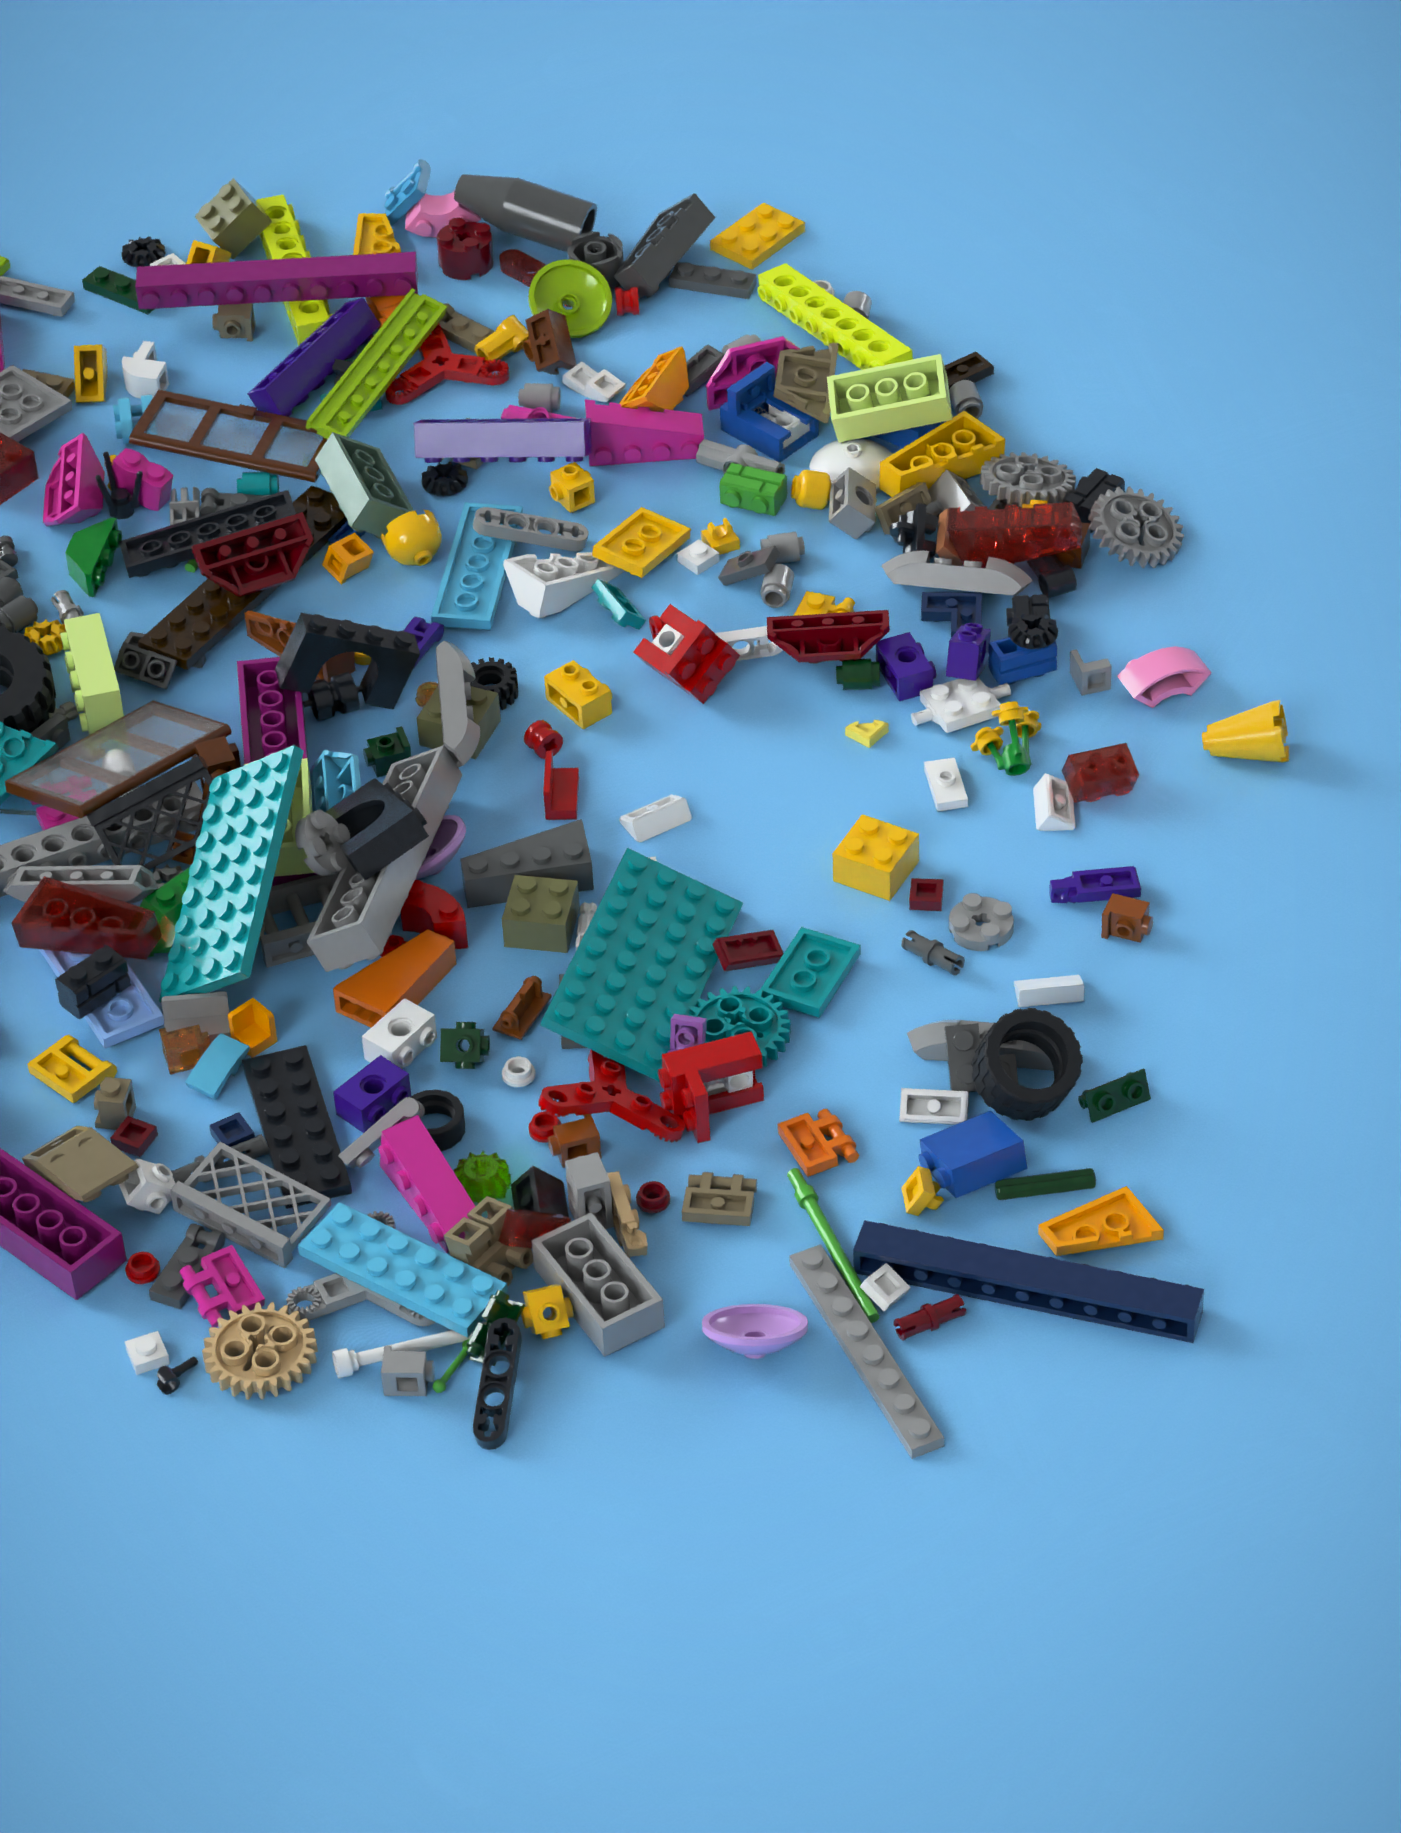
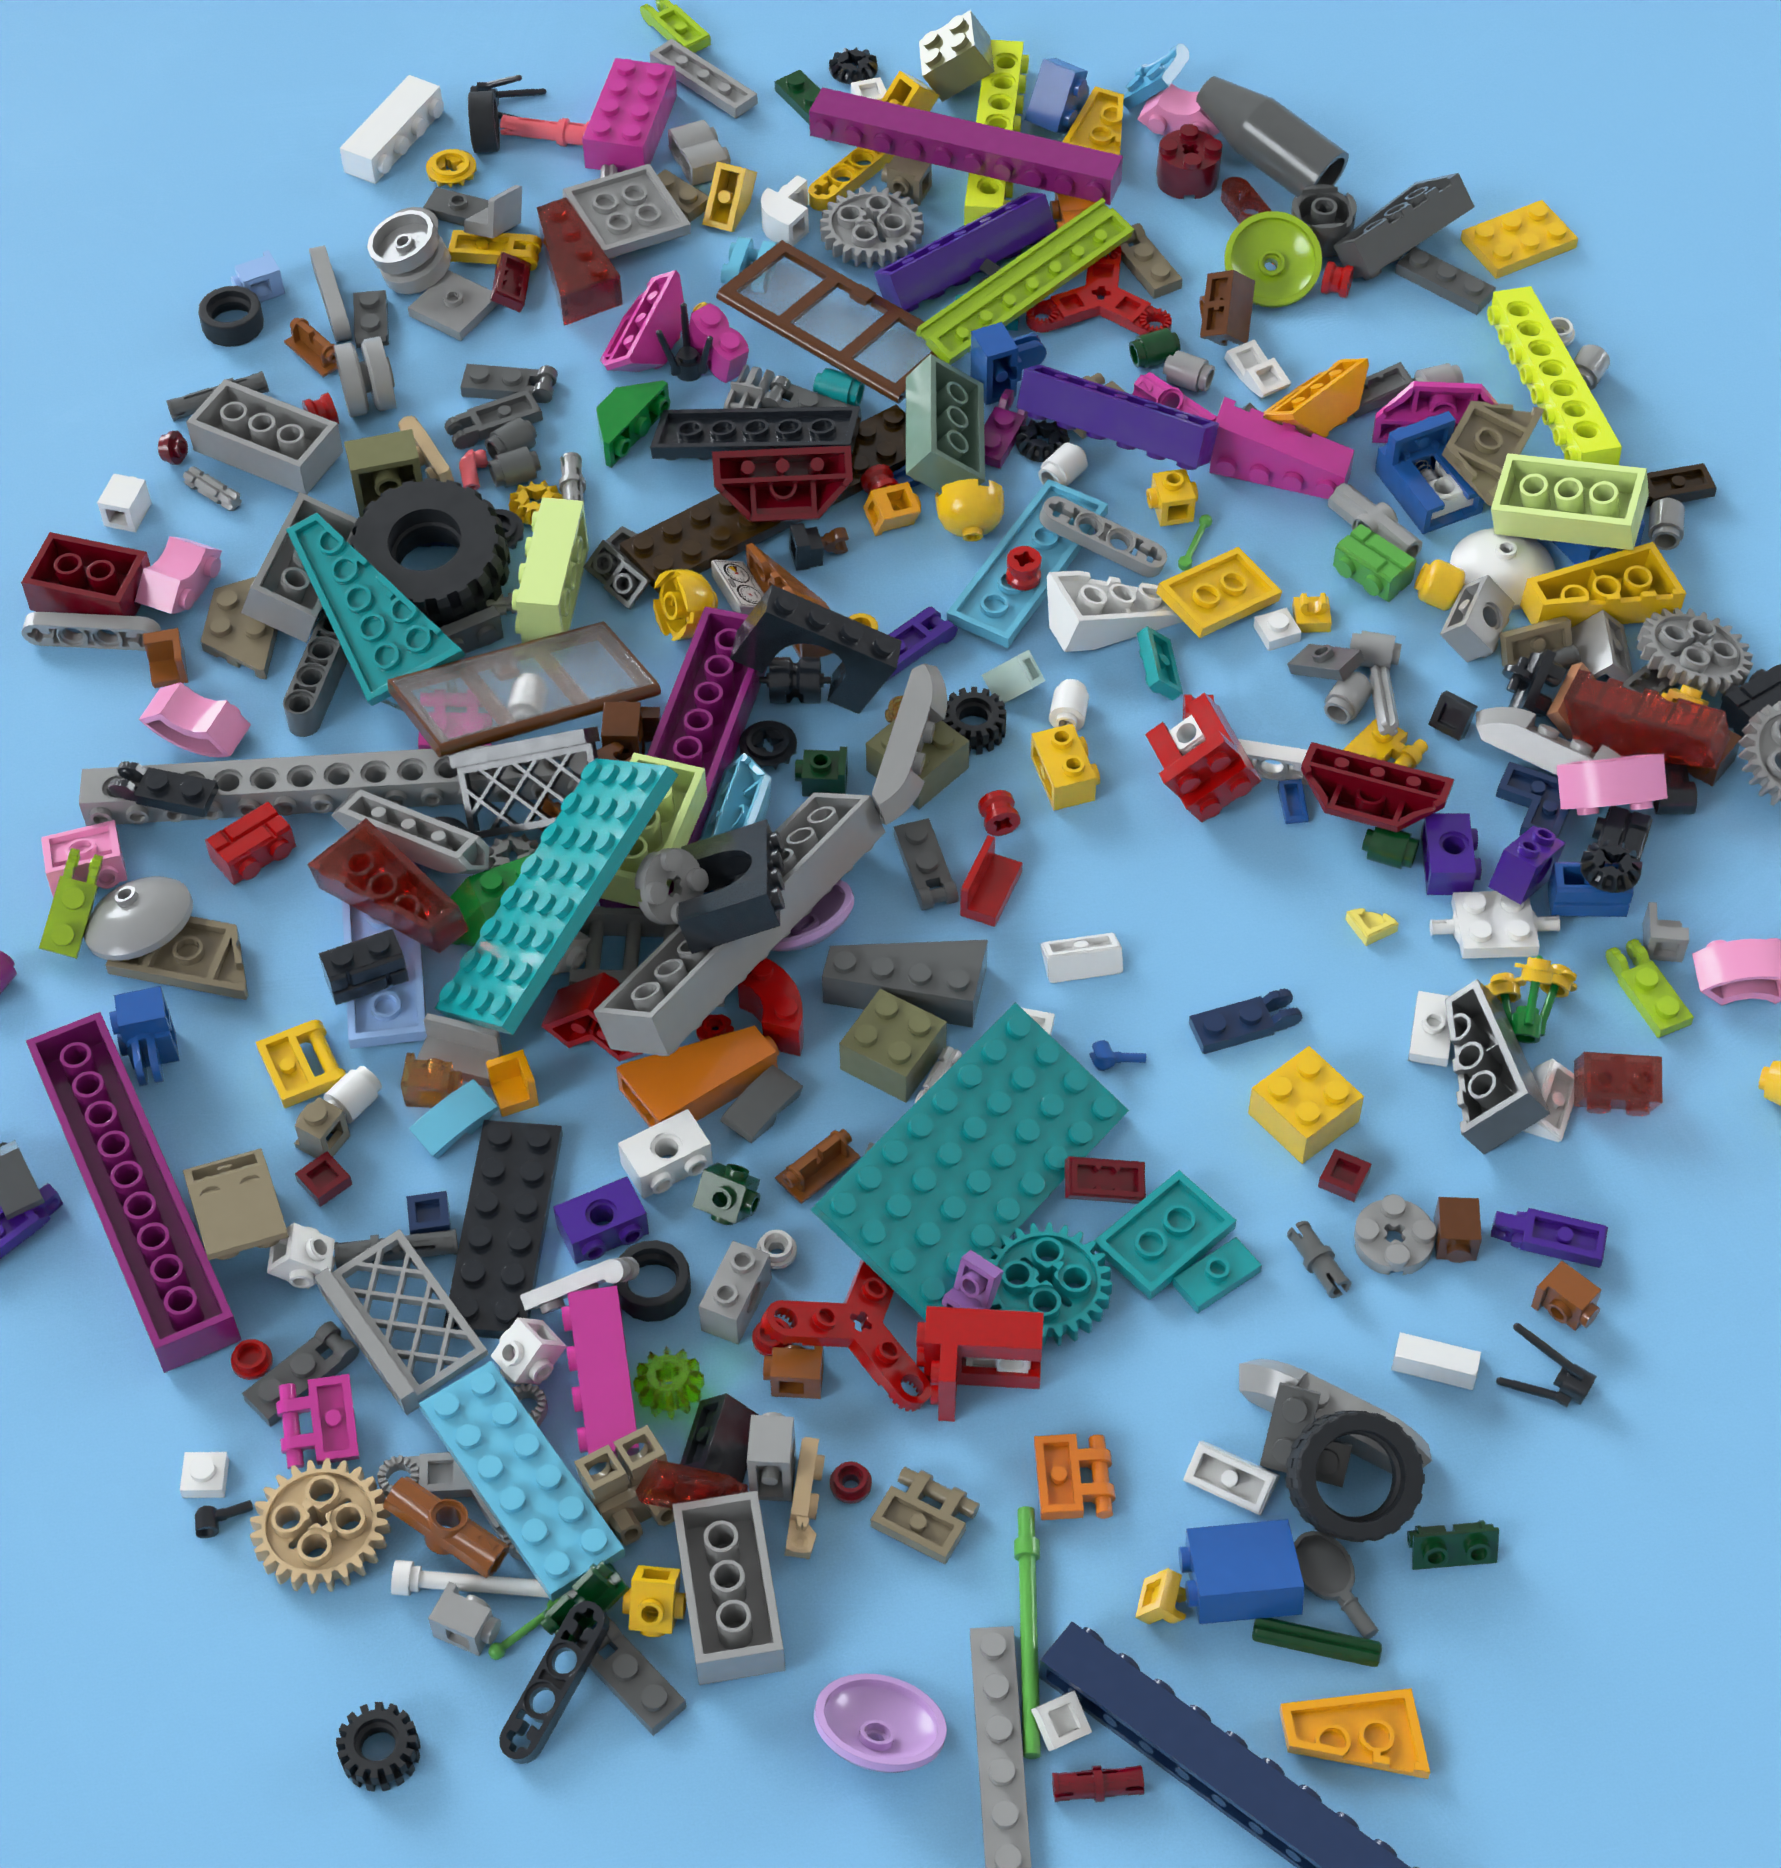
camera: 20 degrees right, 10 degrees up
(45, 348) = (697, 150): none -> light grey brick
(129, 1066) = (354, 1092): none -> white brick
(182, 328) = (827, 187): none -> yellow beam
(212, 669) = (682, 602): none -> yellow cylinder
(223, 364) = (871, 226): none -> light grey gear
(245, 646) = (736, 585): none -> slope
(291, 602) = (808, 547): none -> black piece
(291, 960) = (572, 1014): none -> red brick
(324, 538) = (877, 477): none -> red wheel
(333, 226) = (1057, 95): none -> brick
(333, 740) = (779, 736): none -> black gear
(360, 1316) = (428, 1516): none -> dark orange piece
(363, 1189) = (528, 1351): none -> white brick
(384, 1484) = (369, 1723): none -> black tyre
(386, 425) = (1000, 359): none -> blue brick
(409, 477) = (1002, 429): none -> magenta hinge
(457, 983) = (760, 1103): none -> dark grey slope
(472, 489) = (1064, 465): none -> white brick
(479, 566) = (1023, 568): none -> red wheel
(501, 792) = (925, 864): none -> dark grey plate
(503, 389) = (1153, 348): none -> dark green brick
(503, 1106) = (735, 1292): none -> light grey brick
(506, 338) = (1178, 289): yellow piece -> none
(507, 644) = (1014, 677): none -> light aqua panel
(555, 1370) = (636, 1682): none -> dark grey plate
(560, 650) = (1069, 704): none -> white brick
(601, 532) = (1185, 562): none -> bright green hinge
(709, 876) = (1105, 1058): none -> blue hand
(767, 668) = (1293, 801): none -> blue piece
(801, 821) = (1243, 1021): none -> dark blue hinge
(807, 579) = (1384, 701): none -> light grey axle
(861, 987) = (1216, 1275): none -> teal plate
(864, 574) = (1452, 715): none -> black tile
(1007, 578) = (1612, 782): none -> bright pink brick
(1008, 796) = (1492, 1072): none -> dark grey wedge
(1027, 901) = (1457, 1229): none -> reddish brown brick
(1040, 1142) = (1331, 1576): none -> dark grey piece
(1094, 711) = (1649, 990): none -> lime hinge
(1153, 966) = (1572, 1379): none -> black plant

